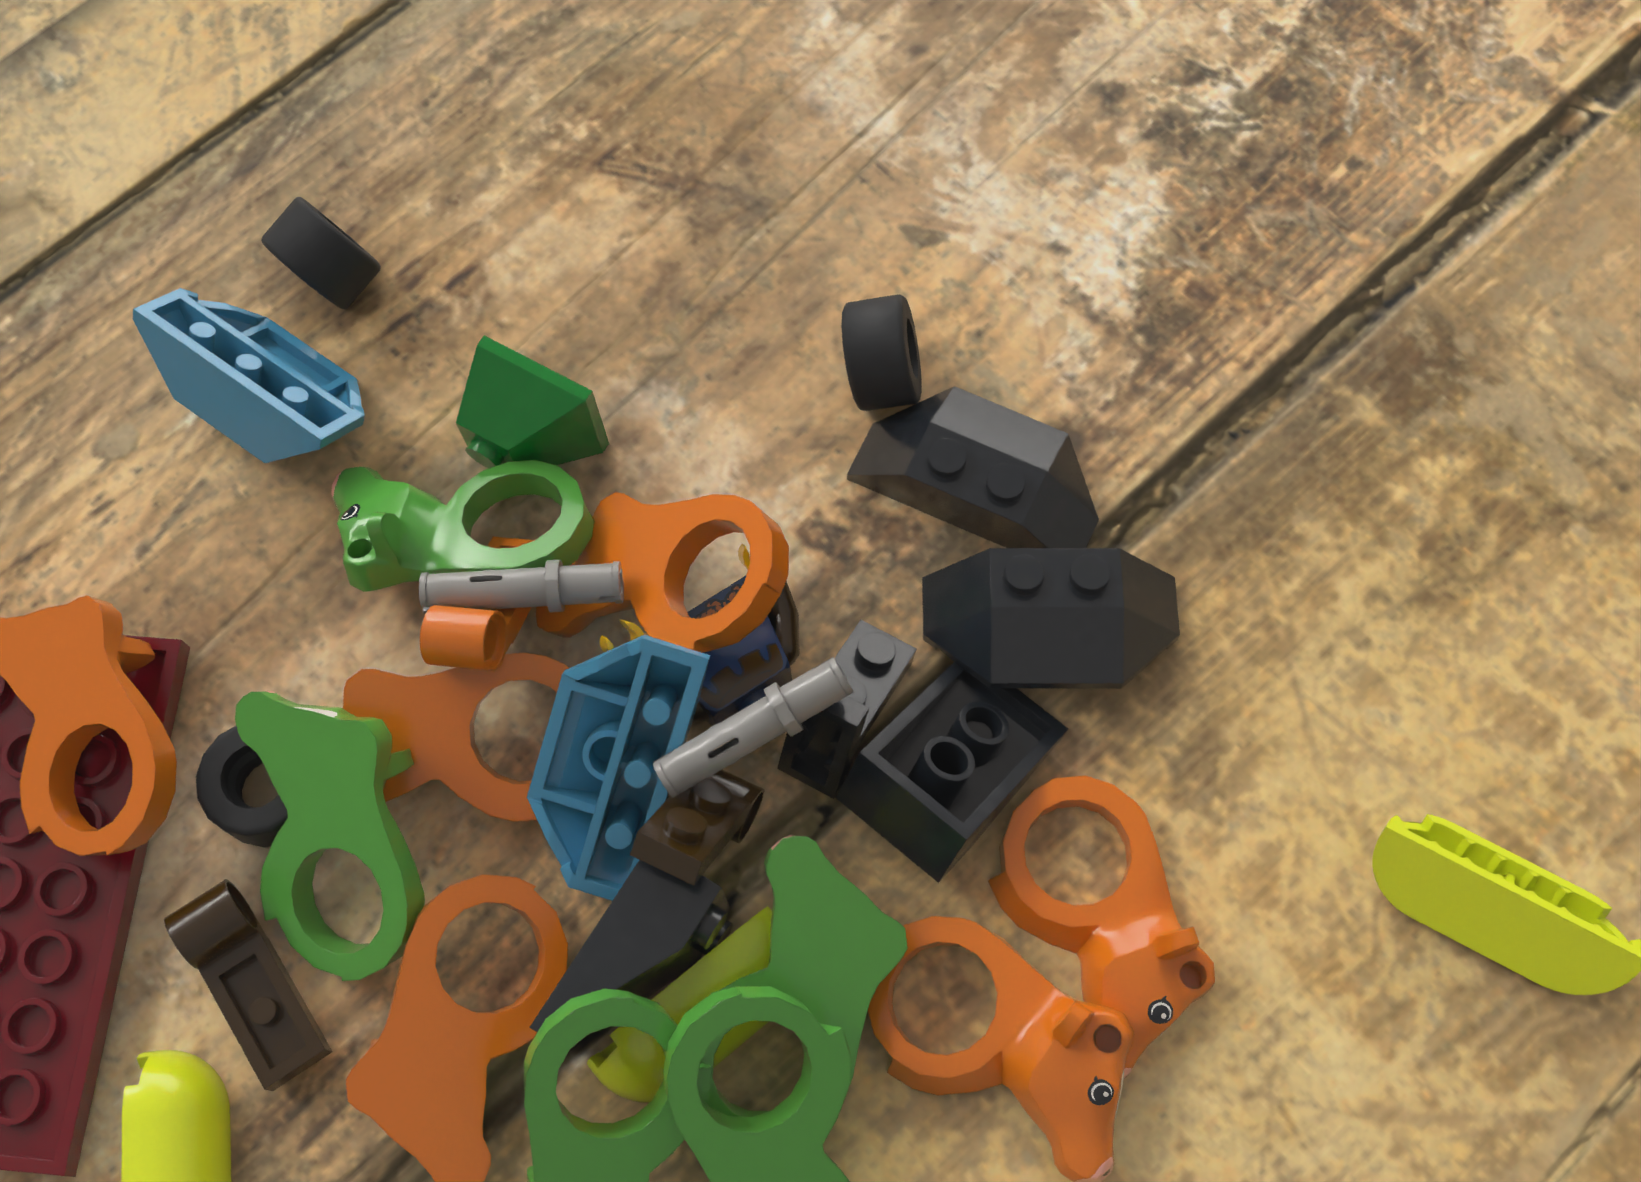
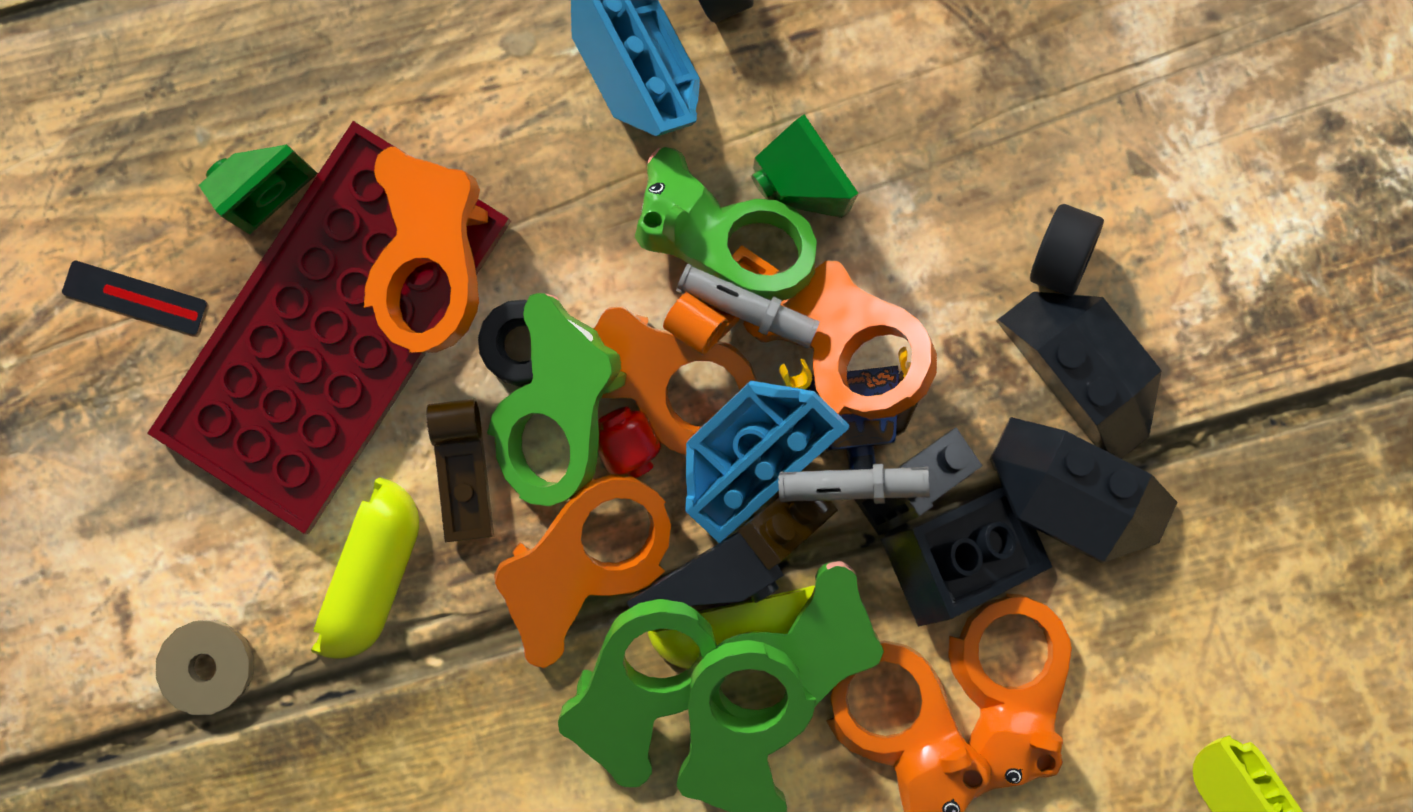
camera: 20 degrees right, 15 degrees up
(452, 838) = (627, 442): none -> red head

